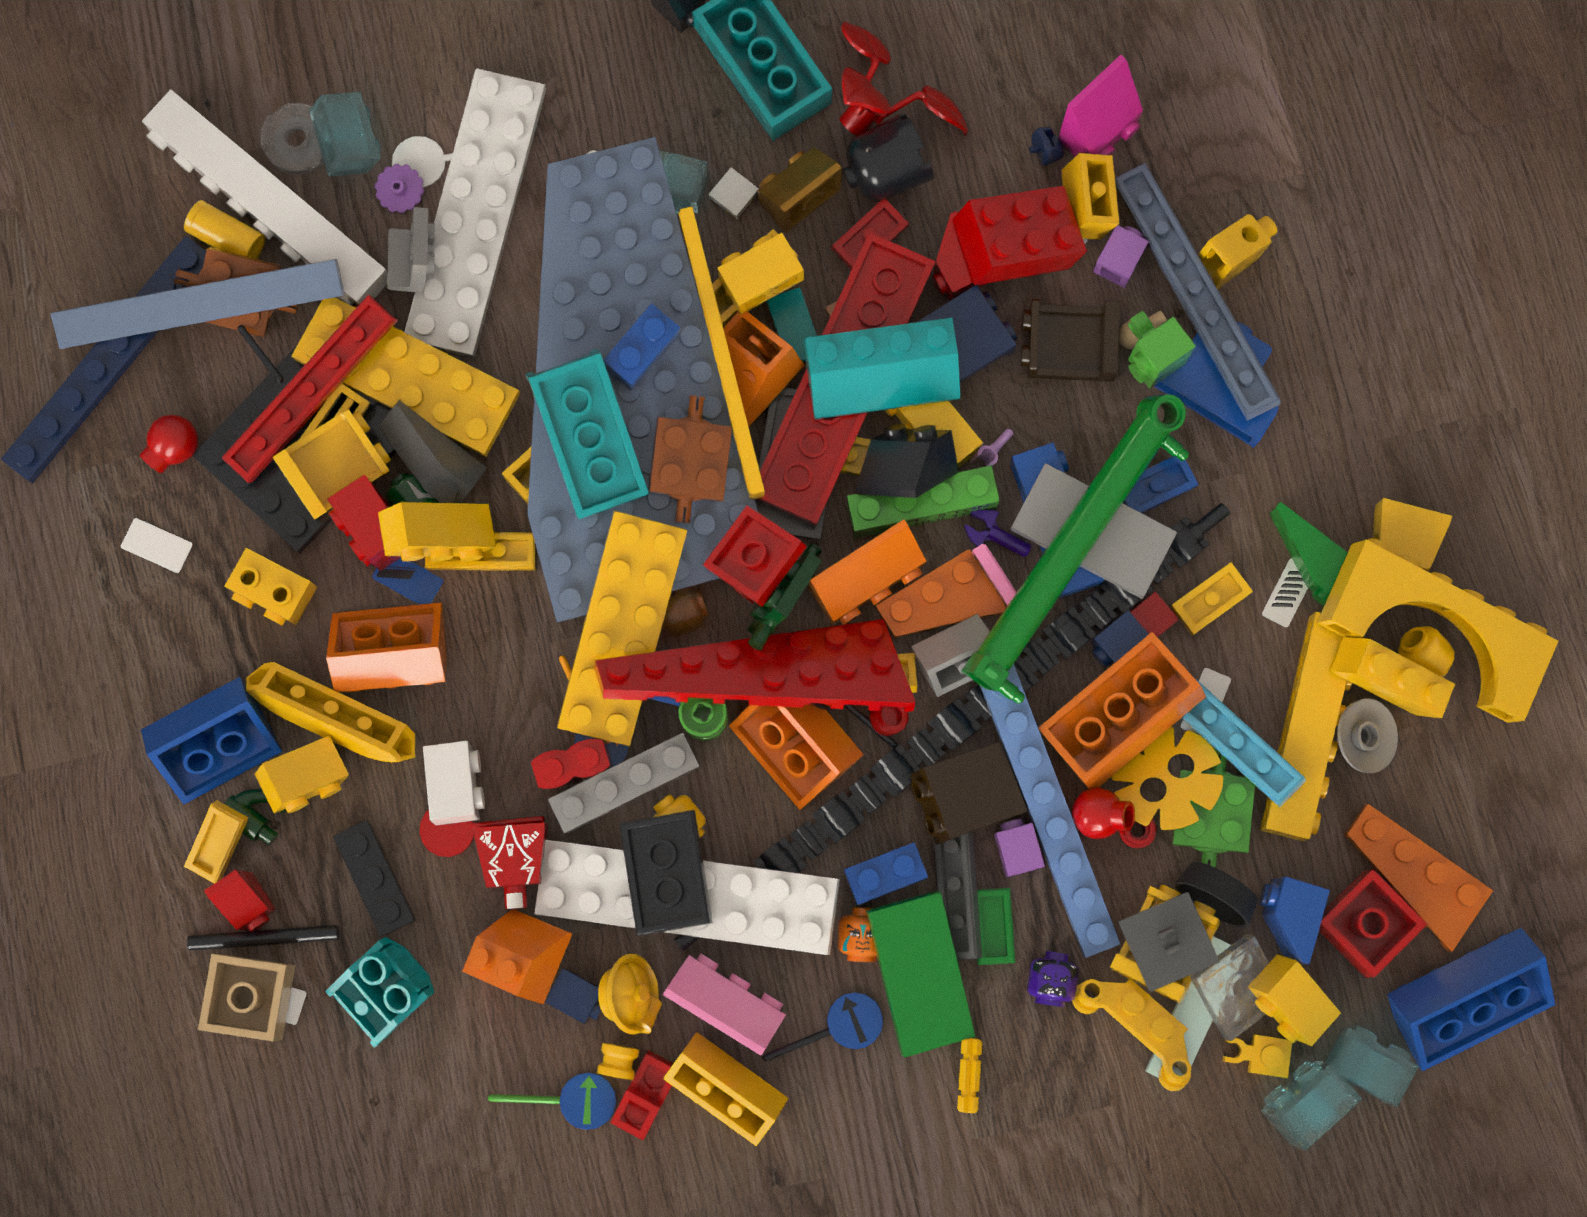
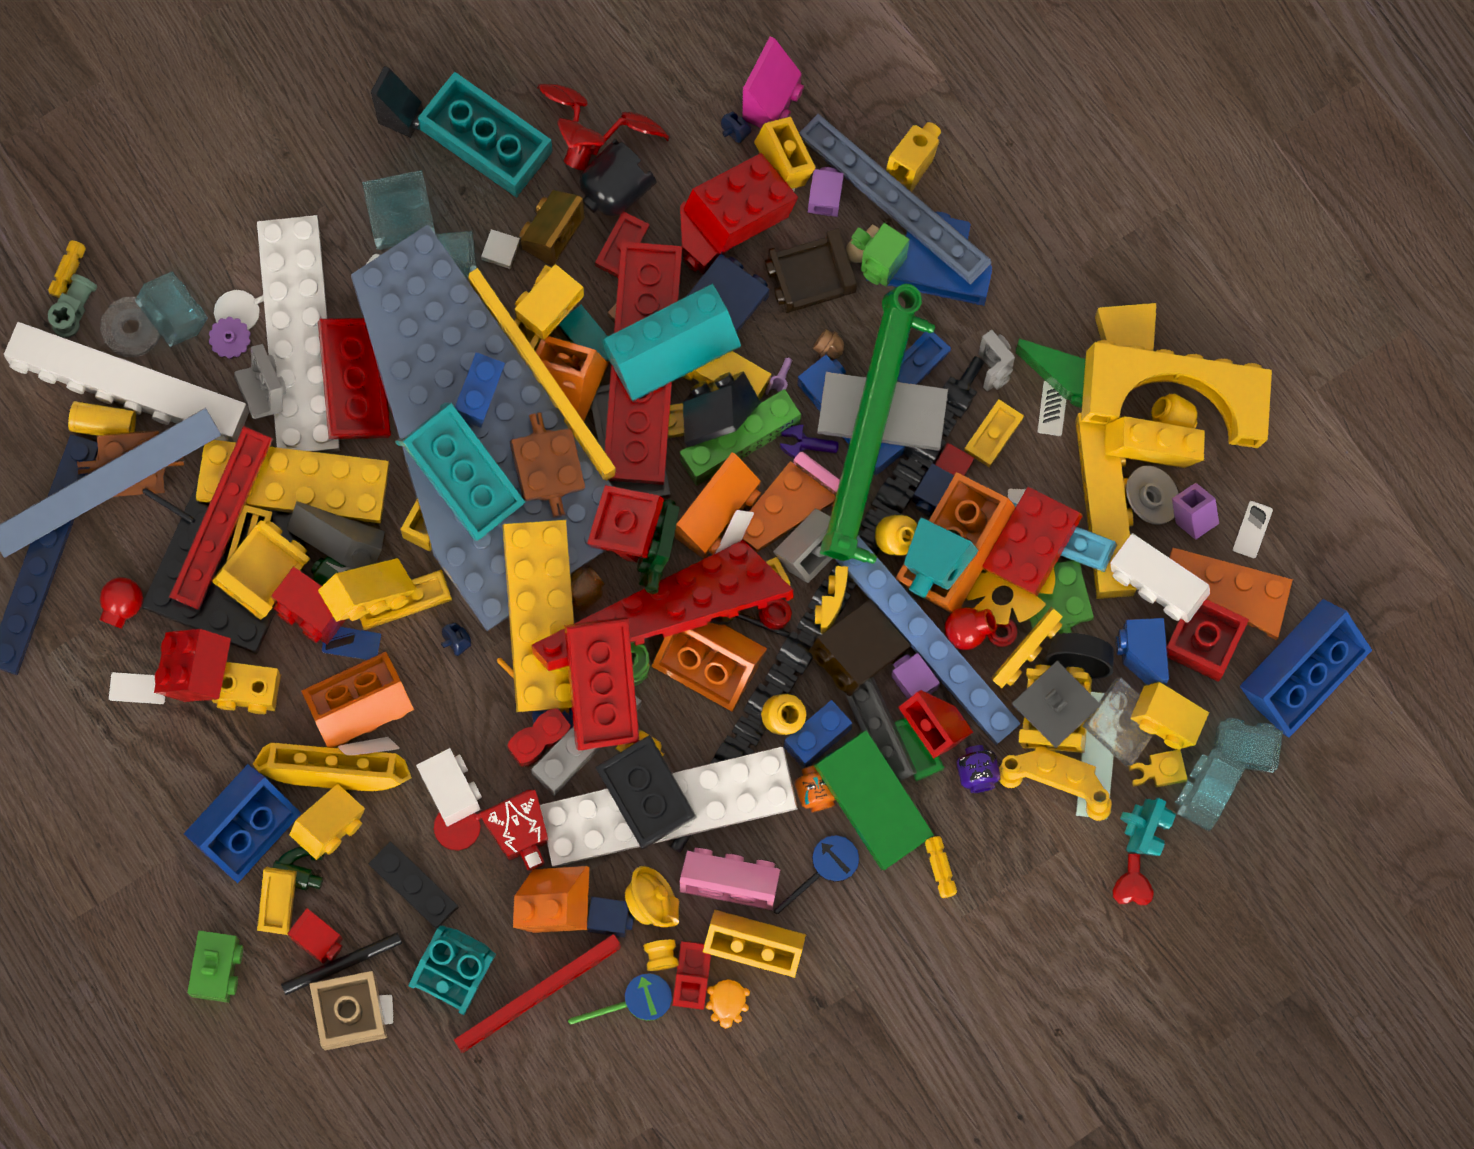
camera: 25 degrees left, 5 degrees down
(121, 891) = (214, 966): none -> bright green brick
(216, 543) = (192, 665): none -> red brick
(237, 93) = (71, 306): none -> sand green connector
(250, 50) = (67, 268): none -> yellow axle
(380, 705) = (368, 746): none -> white sticker
(463, 1054) = (537, 993): none -> red tile
(510, 285) = (352, 381): none -> red tile
(524, 615) = (456, 638): none -> dark blue piece
(634, 106) = (397, 207): none -> clear light blue brick
(658, 733) = (601, 683): none -> red tile
(673, 1140) = (727, 1002): none -> light orange piece
(855, 851) = (783, 714): none -> yellow head
(878, 606) = (735, 529): none -> white sticker
(946, 740) = (831, 605): none -> yellow slope
(1023, 910) = (935, 722): none -> red slope
(1058, 680) = (895, 534): none -> yellow head
(1061, 431) = (829, 344): none -> medium nougat plate
(1093, 724) = (937, 557): none -> teal torso
(1160, 862) = (1028, 648): none -> yellow plate
(1181, 1176) = (1133, 885): none -> red rock
(1210, 741) = (1032, 541): none -> red plate
(1218, 1114) = (1142, 826): none -> teal hips
(1248, 515) = (1000, 360): none -> light grey bracket
(1340, 841) = (1159, 579): none -> white brick
(1410, 772) = (1195, 511): none -> medium lavender brick
(1467, 814) = (1252, 529): none -> white sticker

